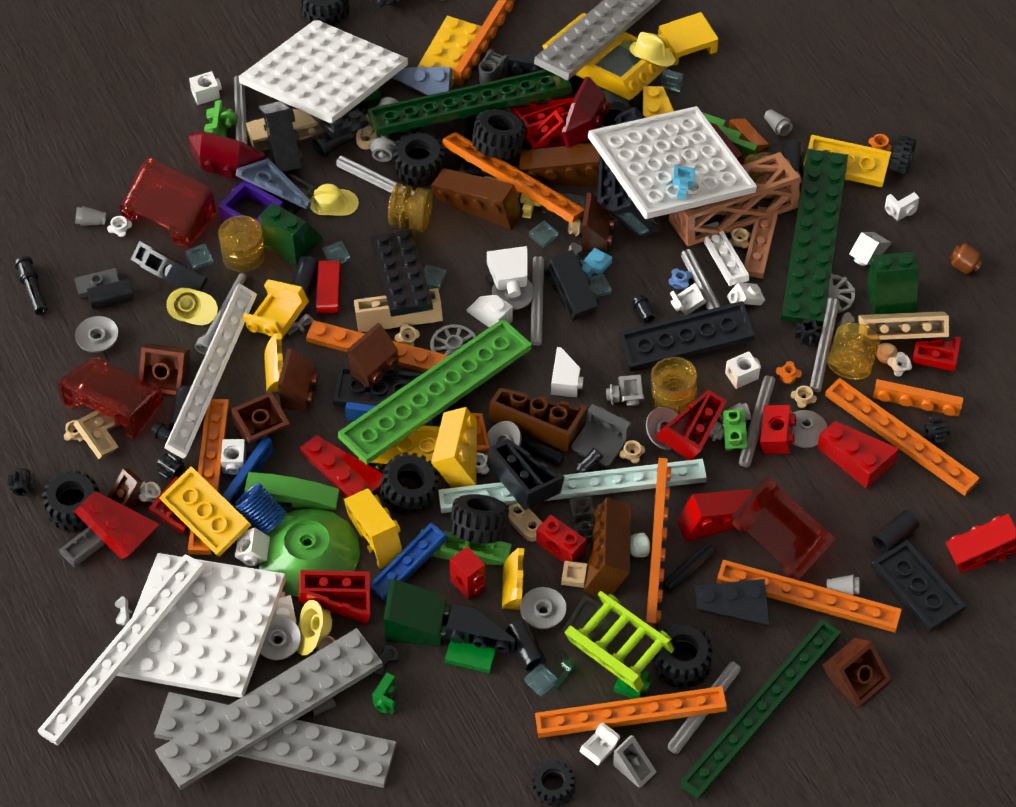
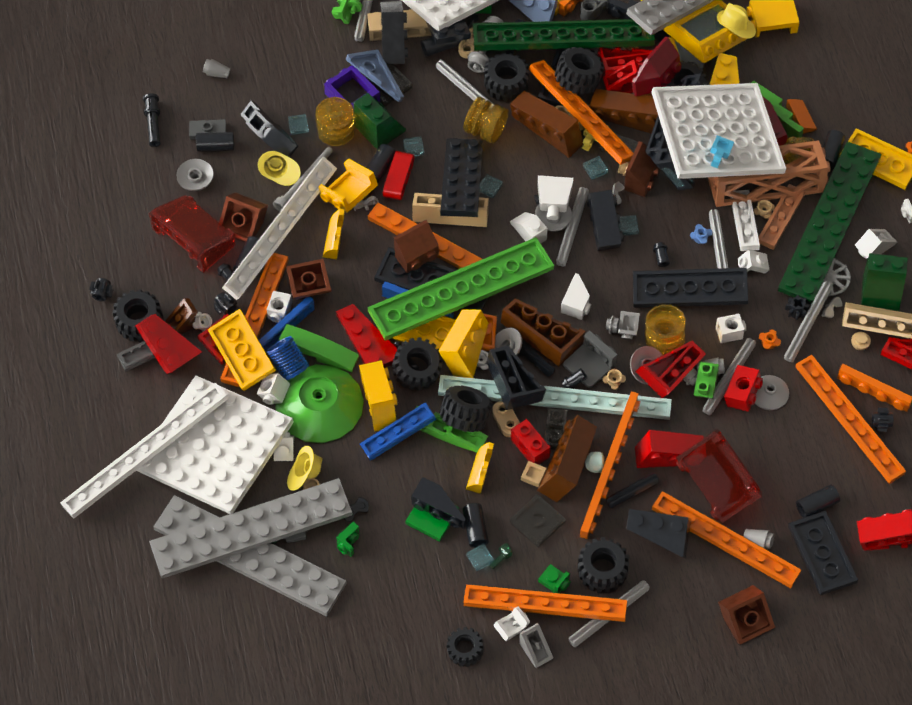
camera: 15 degrees right, 5 degrees up
(70, 435) = (156, 250): tan plate -> none
(95, 430) = (171, 261): tan plate -> none
(119, 226) = (238, 78): white plate -> none
(123, 617) = (154, 422): piece -> none
(170, 201) = (284, 71): clear red windscreen -> none
(222, 154) = (340, 38): dark red wedge -> none
(288, 631) = (280, 463): light grey dish -> none
(297, 382) = (348, 254): copper slope -> none
(333, 201) = (423, 99): light yellow piece -> none
(337, 591) = (331, 443): red wedge -> none
(406, 329) = (453, 228): tan plate -> none
(415, 615) = (389, 478): dark green slope -> none
(452, 342) = (489, 248): light grey wheel -> none
(468, 573) = (443, 453): red brick -> none
(543, 599) = (498, 489): light grey dish -> none
(596, 262) = (632, 203): medium azure plate -> none
(615, 662) = (542, 558): lime fence -> none
(672, 80) = (748, 51): clear light blue tile -> none
(688, 300) = (701, 255): white bracket -> none
(759, 709) = (655, 626): dark green plate -> none
(780, 124) = (831, 112): light grey cone -> none
(806, 392) = (776, 358): tan plate -> none
(853, 351) = (830, 334): clear yellow wheel -> none
(857, 453) = (806, 424): red wedge -> none
(903, 360) = (874, 354): white plate -> none

